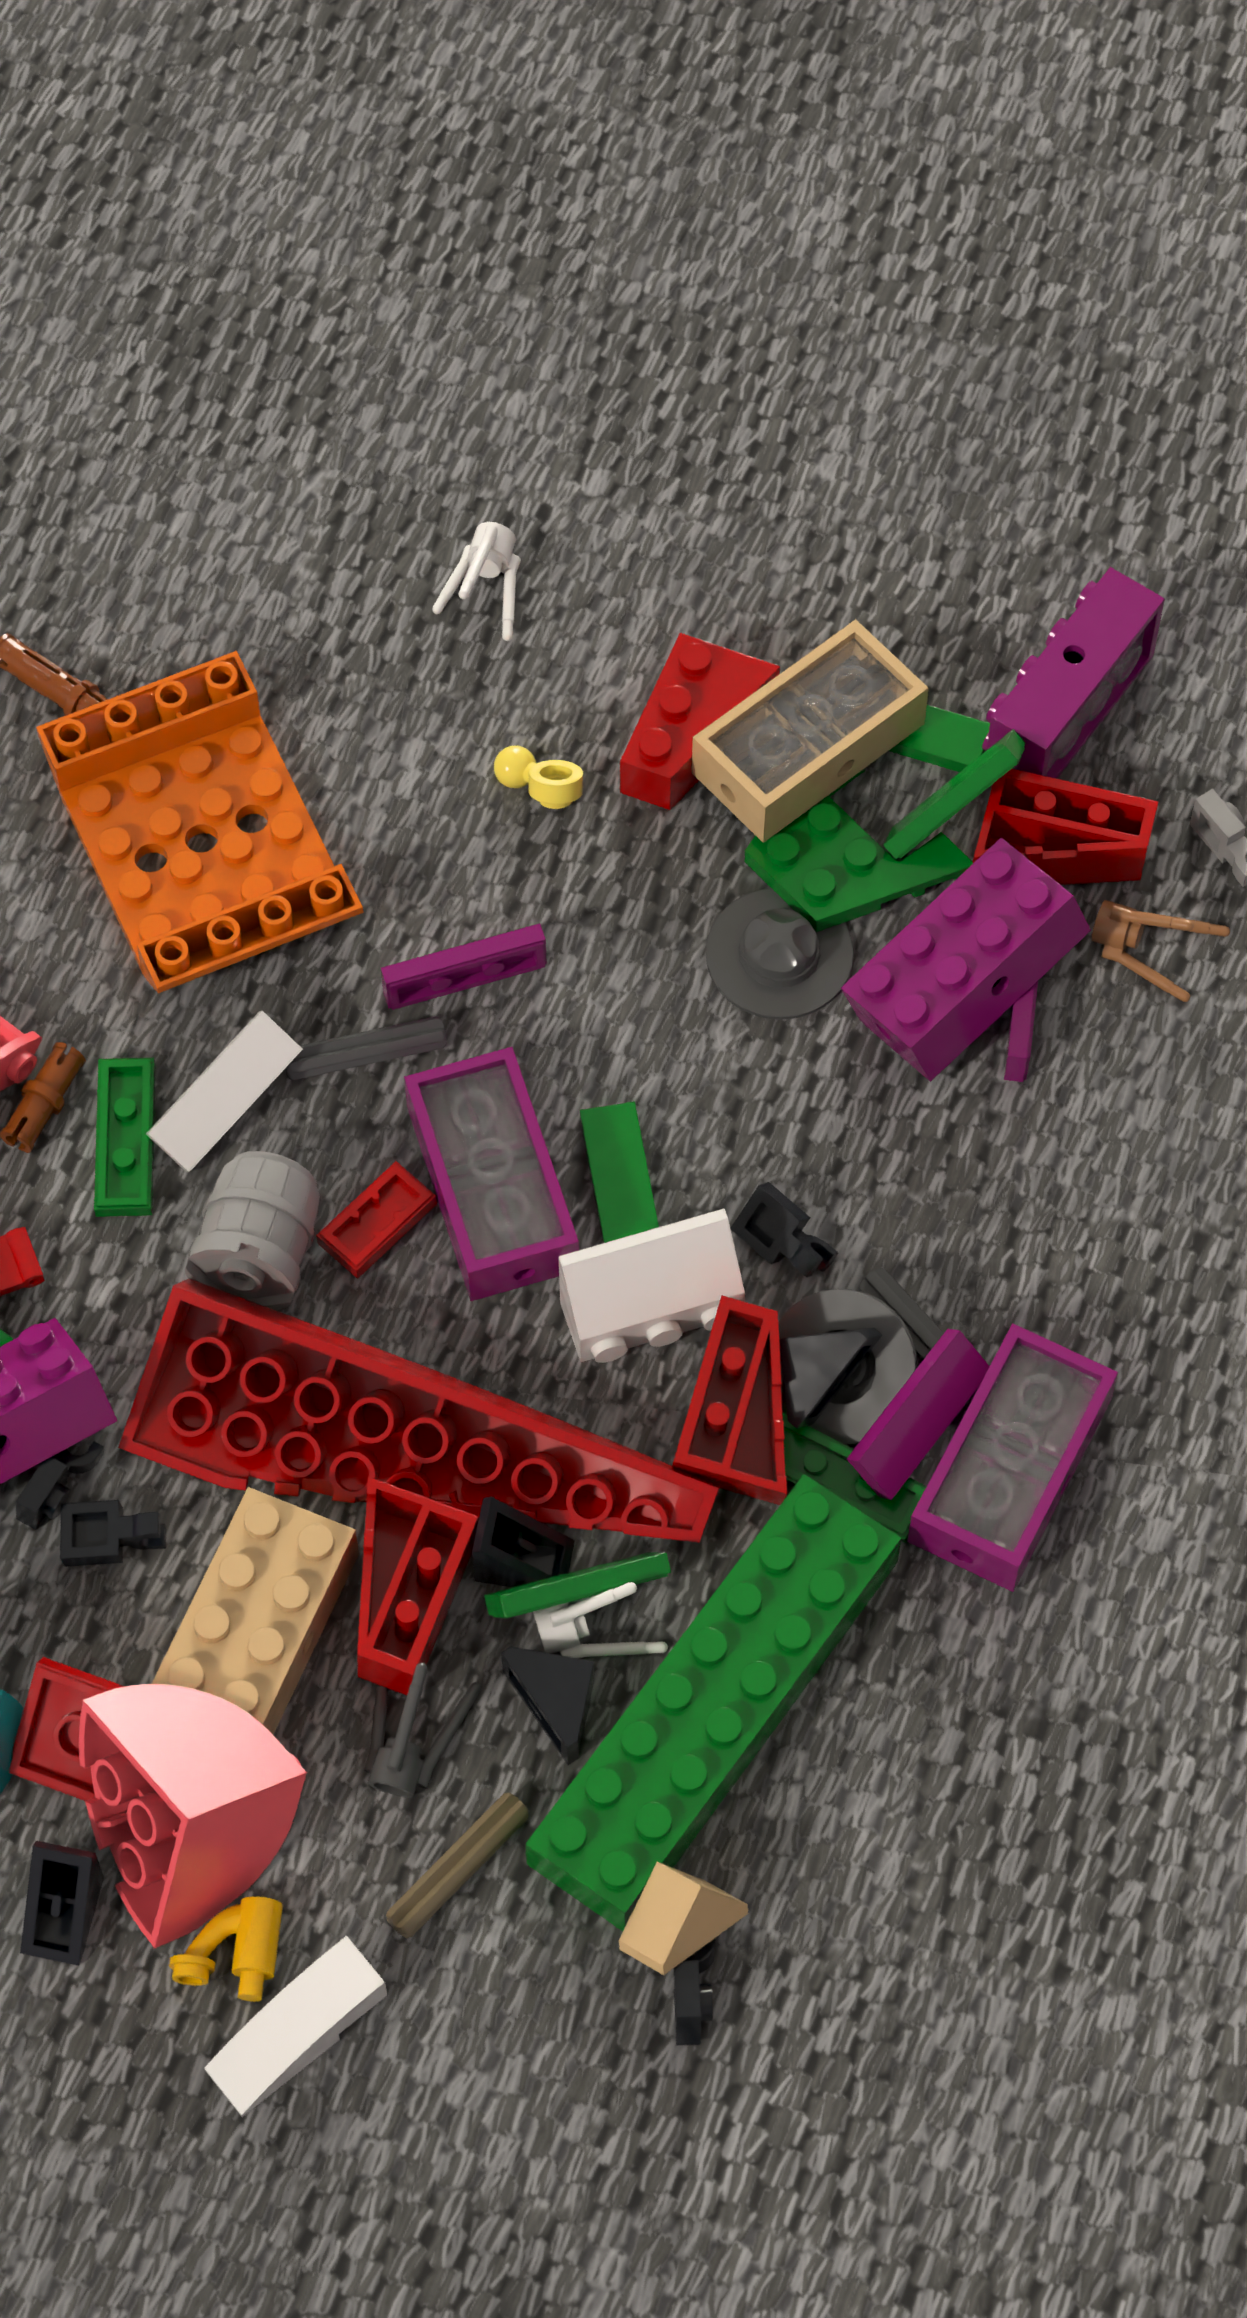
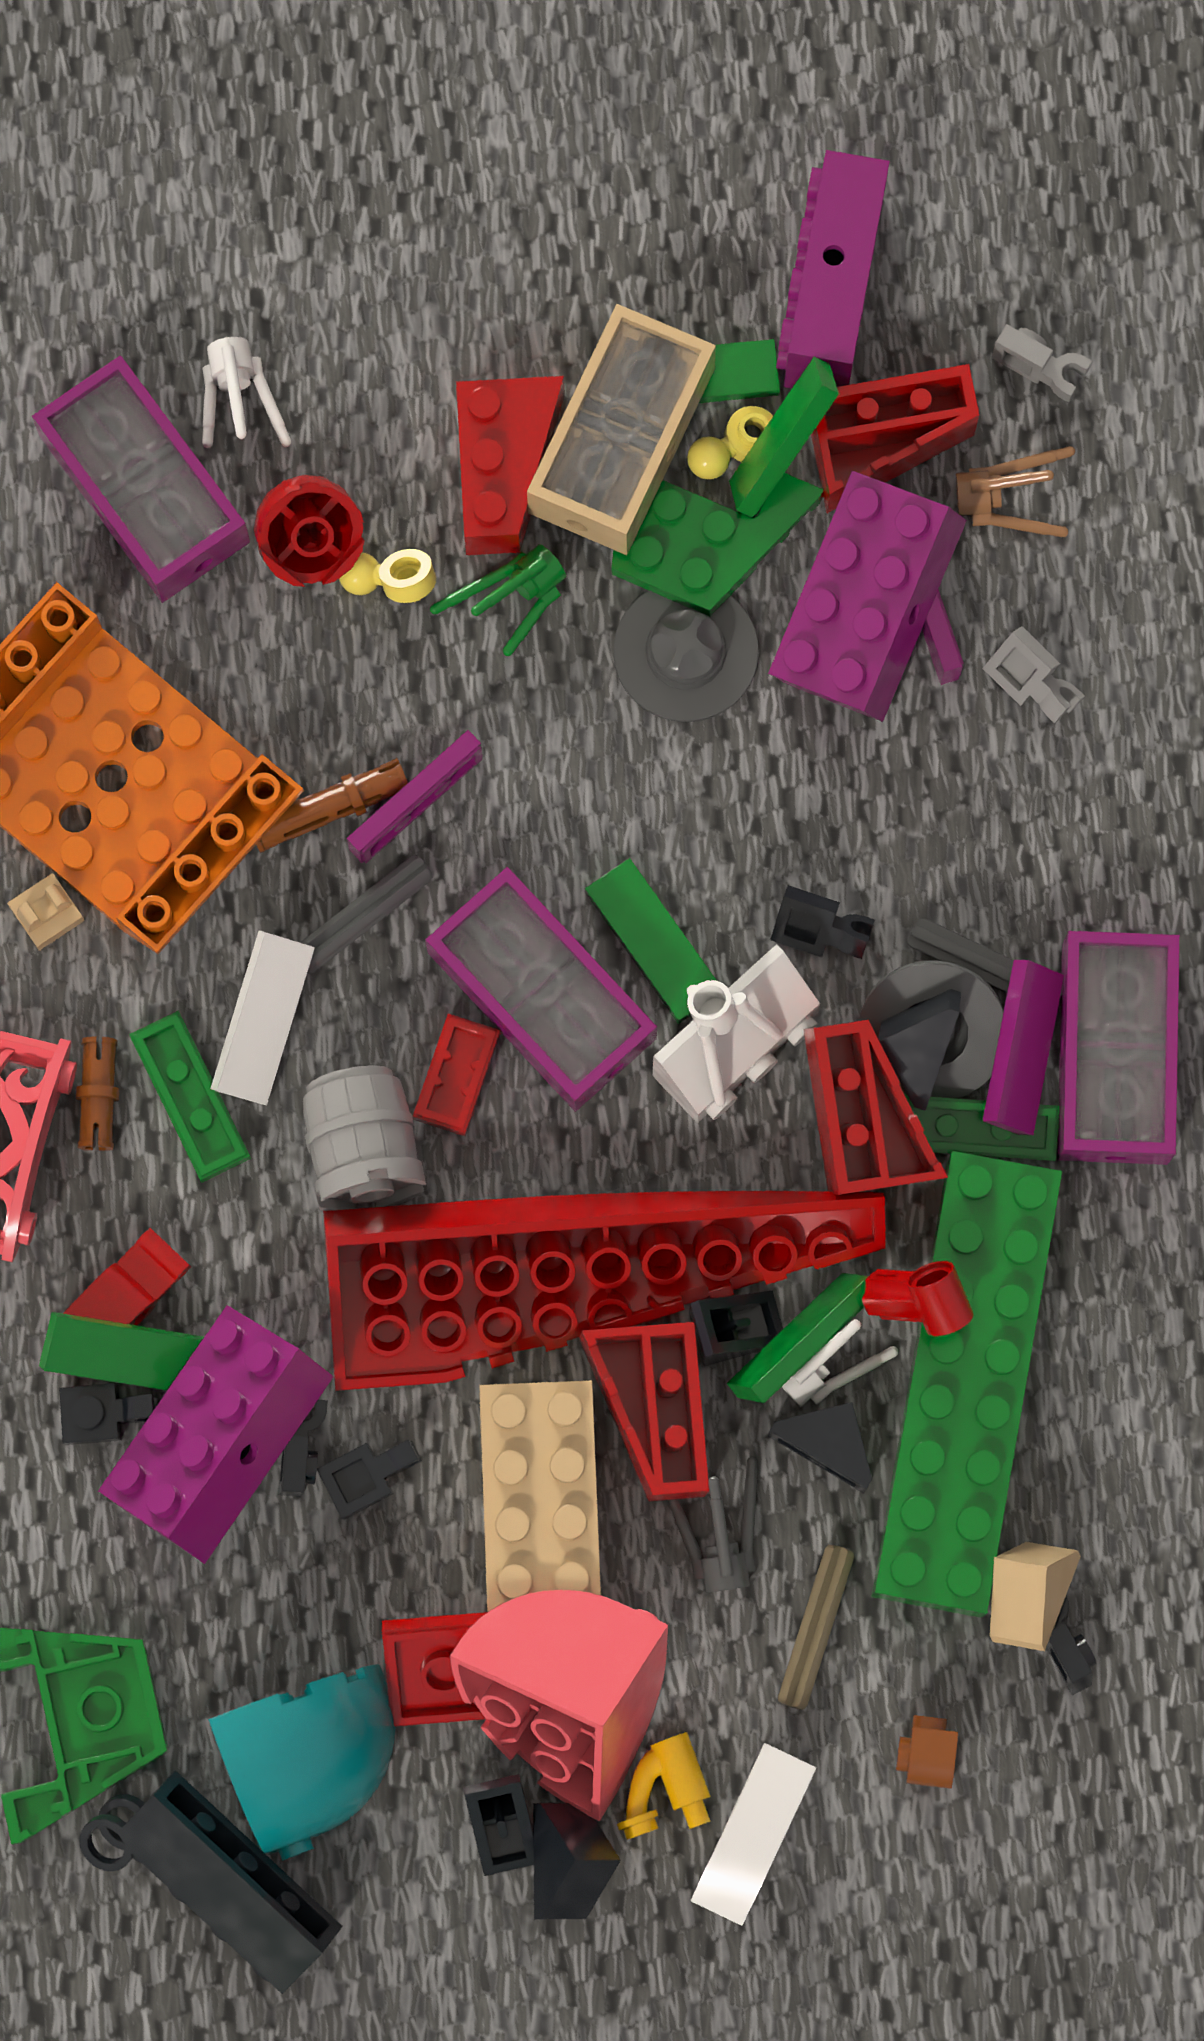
camera: 25 degrees left, 15 degrees up
(82, 927) = (45, 911): none -> tan tile
(104, 1972) = (569, 1861): none -> black slope
(359, 605) = (141, 478): none -> clear brick
(379, 942) = (337, 801): none -> dark orange pin
(483, 703) = (309, 530): none -> red cylinder
(506, 2030) = (928, 1753): none -> dark orange plate
(632, 1240) = (715, 1015): none -> white plant
(668, 828) = (529, 574): none -> green plant
(705, 1583) = (925, 1295): none -> red piece
(884, 796) = (711, 456): none -> light yellow plate
(1087, 1098) = (1025, 673): none -> light grey plate

